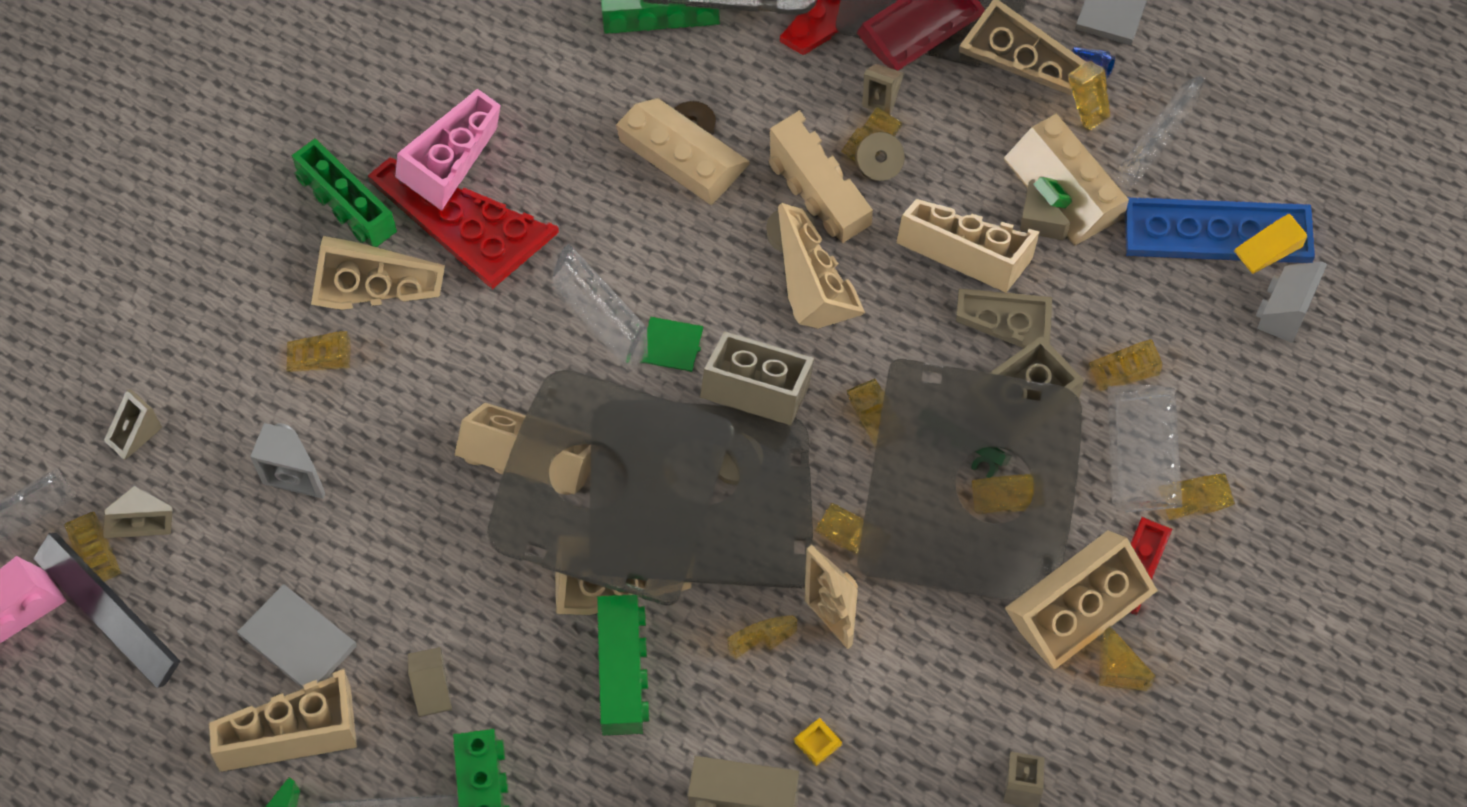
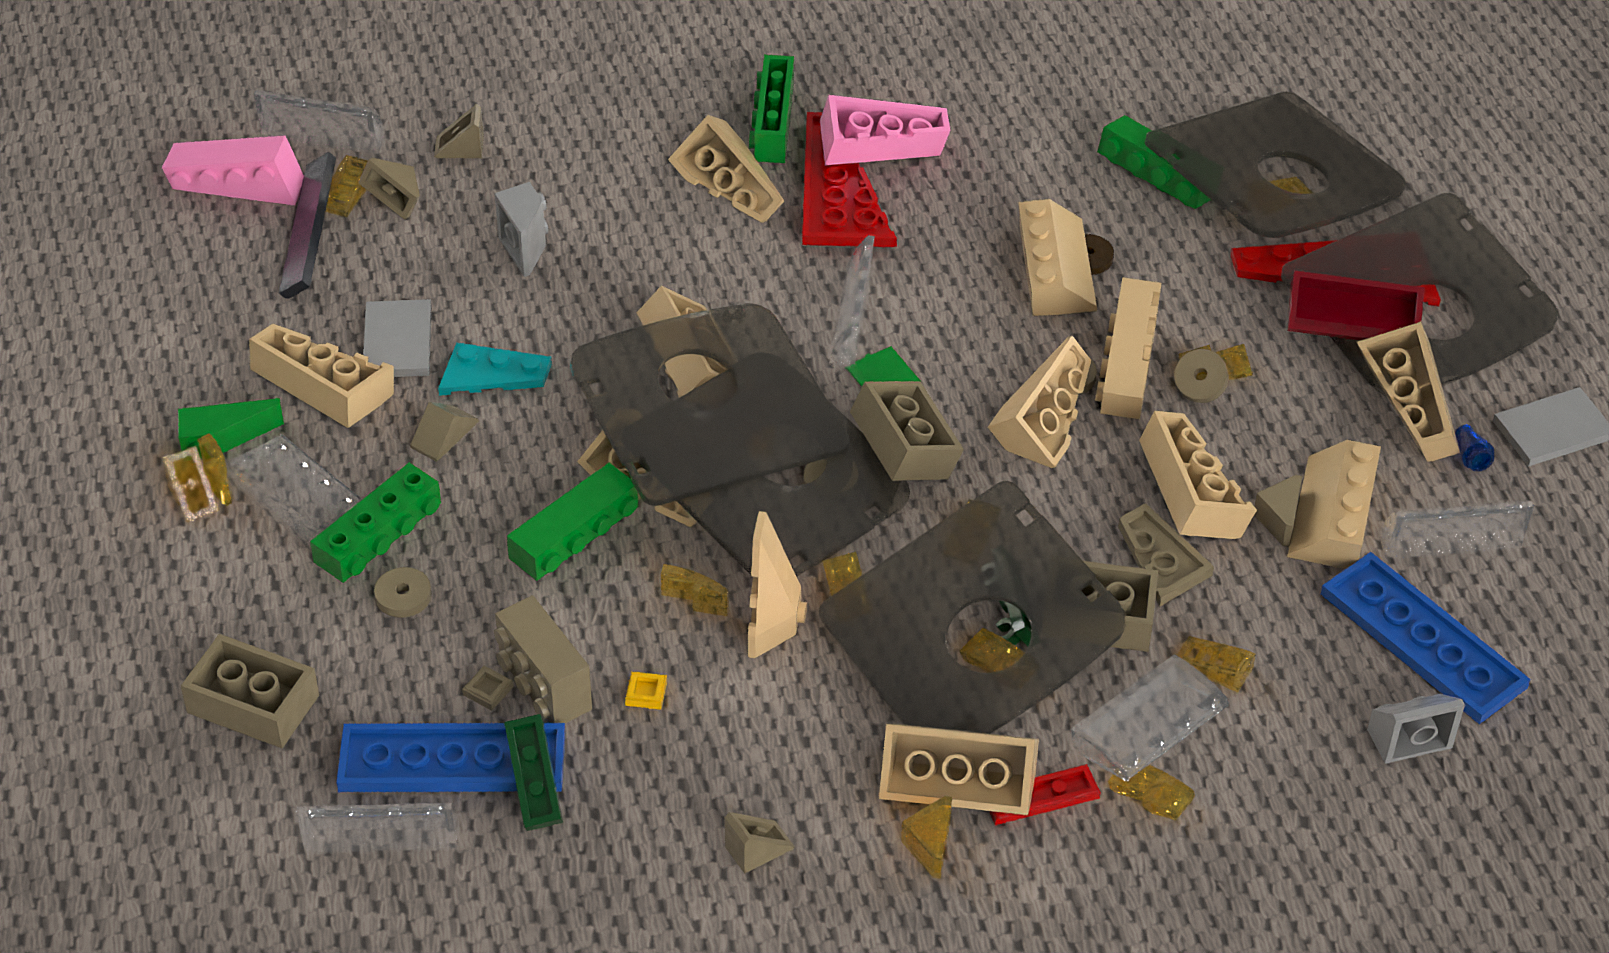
camera: 45 degrees right, 15 degrees down
(329, 361) = (643, 204): clear yellow slope -> none
(397, 599) = (483, 367): none -> teal wing
(881, 87) = (1261, 329): dark tan slope -> none
(1053, 192) = (1305, 495): green tile -> none
(1080, 81) = (1434, 439): clear yellow slope -> none
(1272, 244) = (1450, 672): yellow slope -> none

